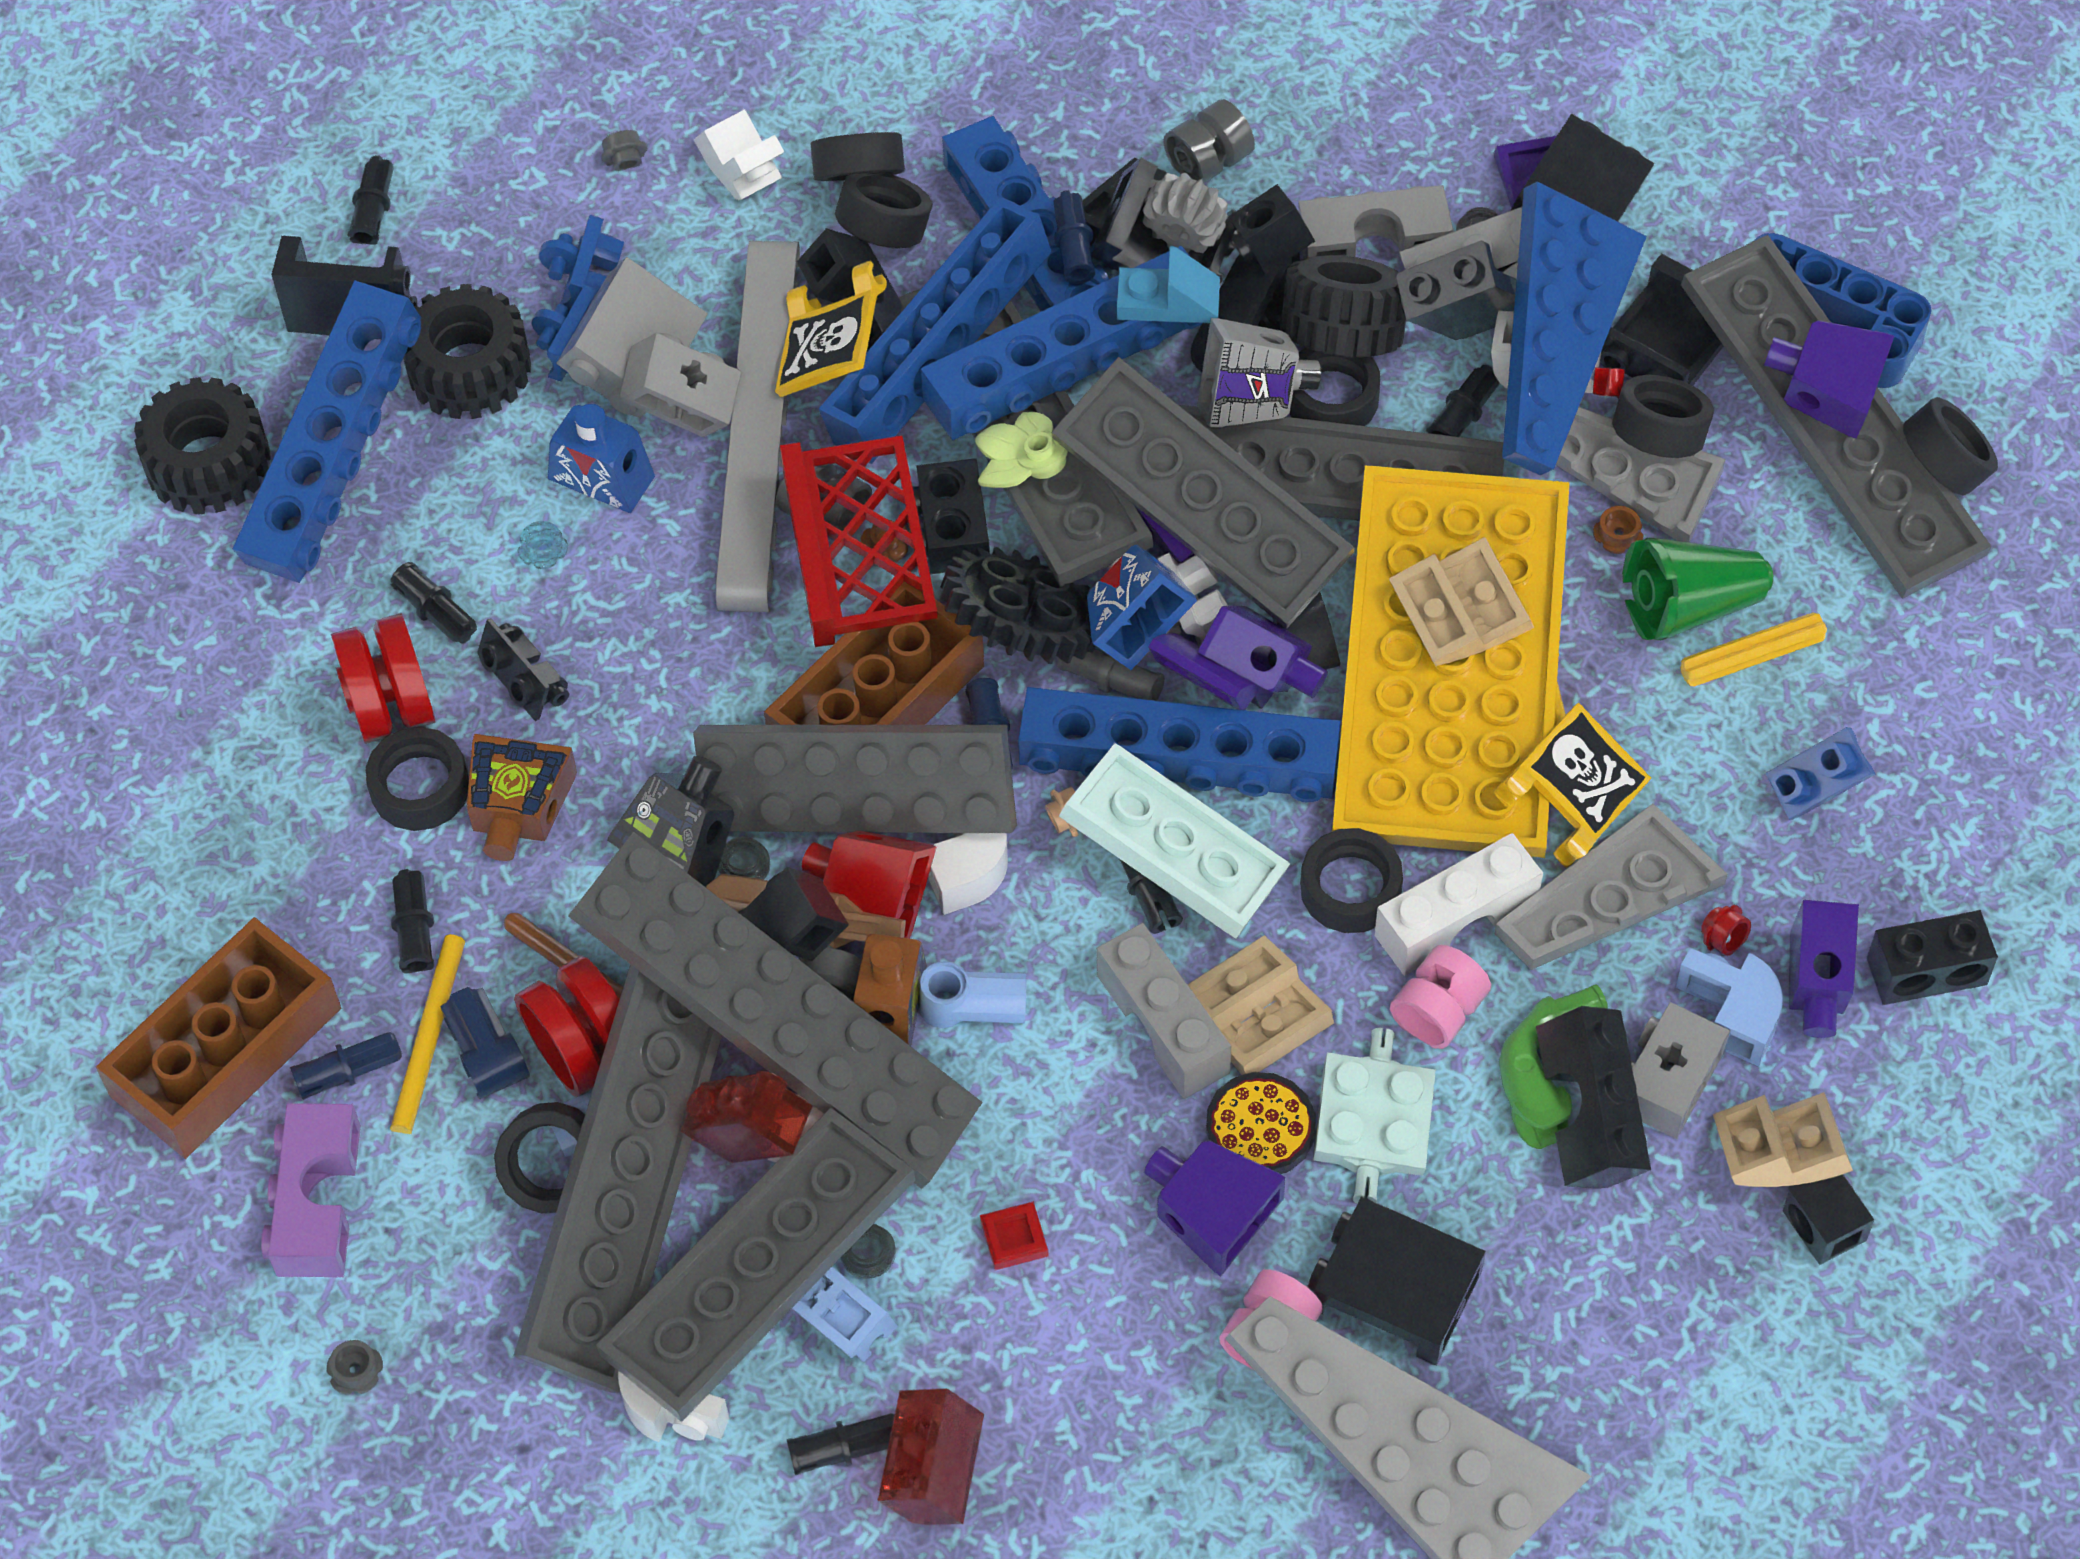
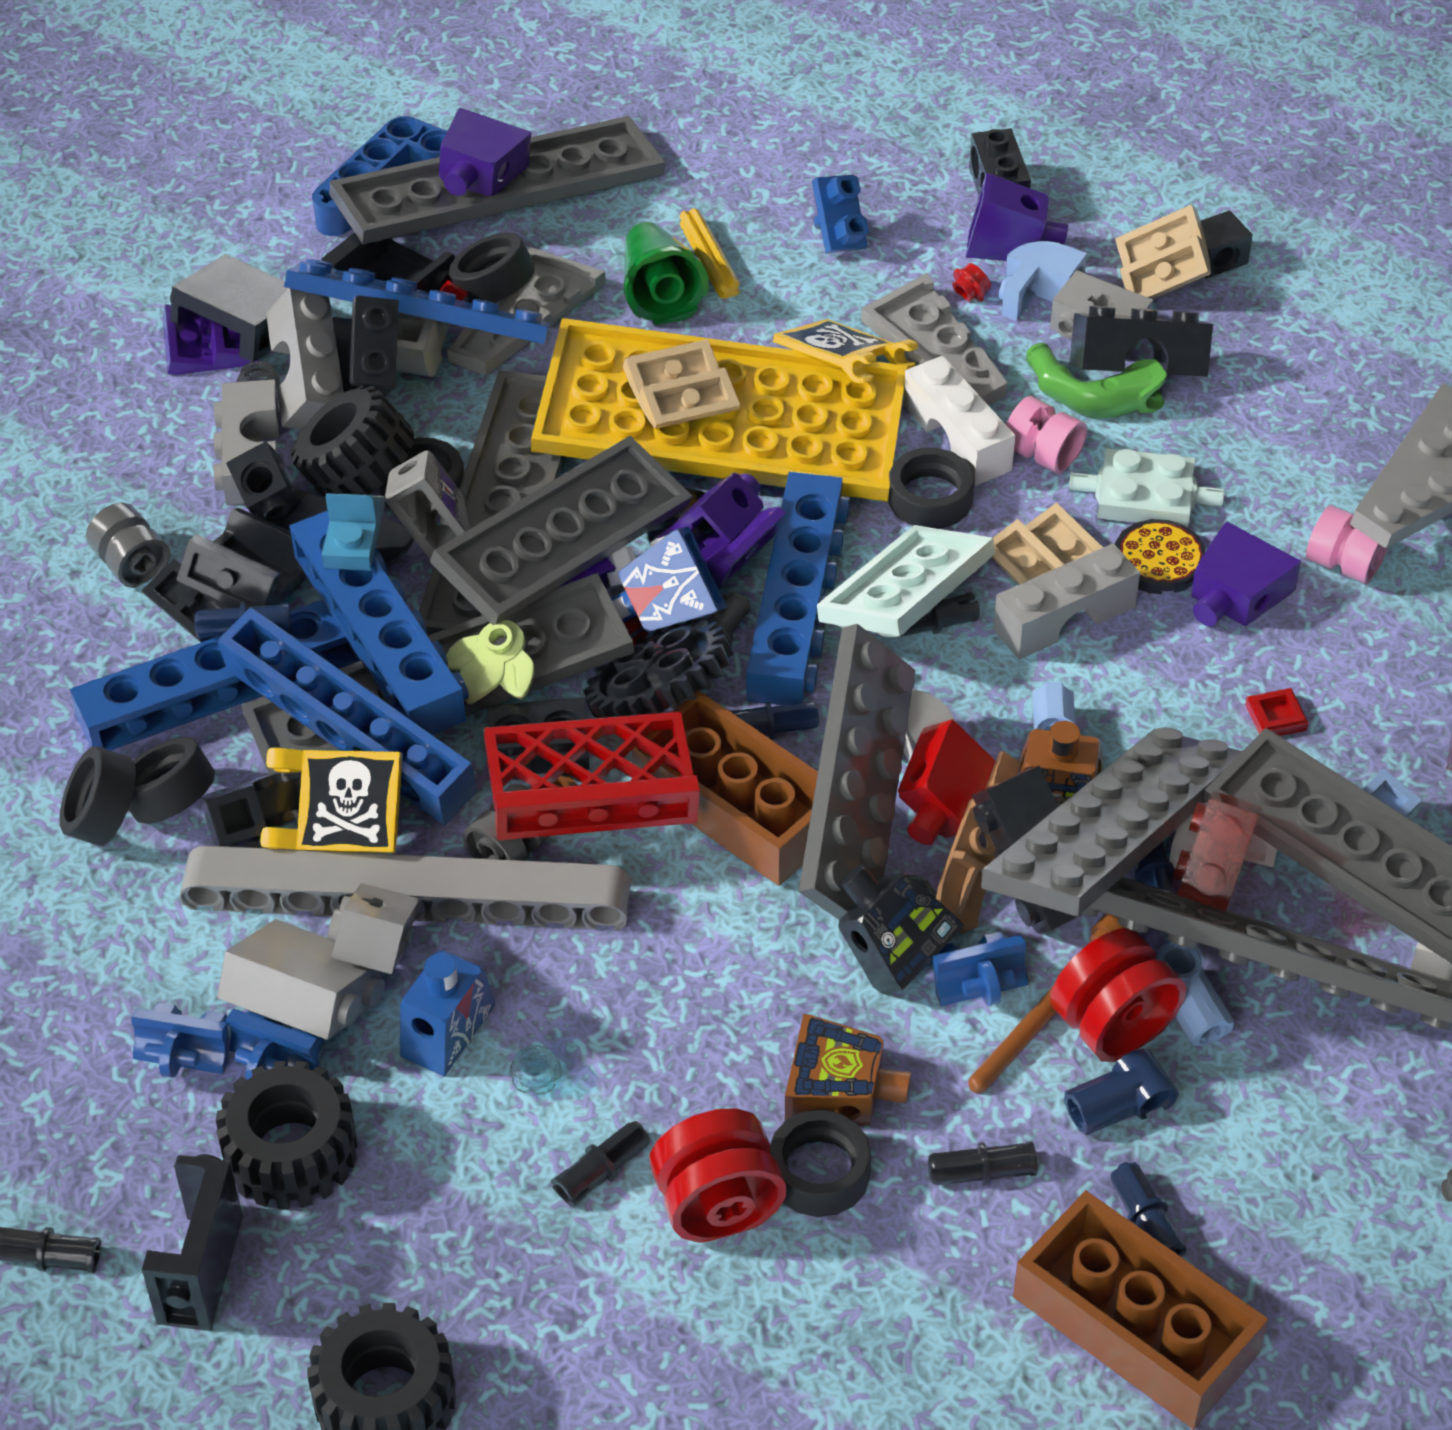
camera: 90 degrees left, 10 degrees down
(311, 1146) = (1251, 1231): medium lavender arch -> none
(365, 316) = (409, 1263): blue brick -> none
(427, 1035) = (1107, 1149): yellow bar -> none
(506, 1153) = (1231, 1033): black tyre -> none
(510, 657) = (692, 1083): black hinge -> none
(623, 150) = (26, 1012): dark grey plate -> none
(739, 155) = (67, 905): white brick -> none
(1185, 212) = (243, 525): light grey gear -> none
(1398, 1276) = (1297, 472): black panel -> none
(1466, 403) = (448, 400): black axle -> none
(1621, 519) = (589, 310): dark orange plate -> none
(1950, 446) = (544, 114): black tyre -> none

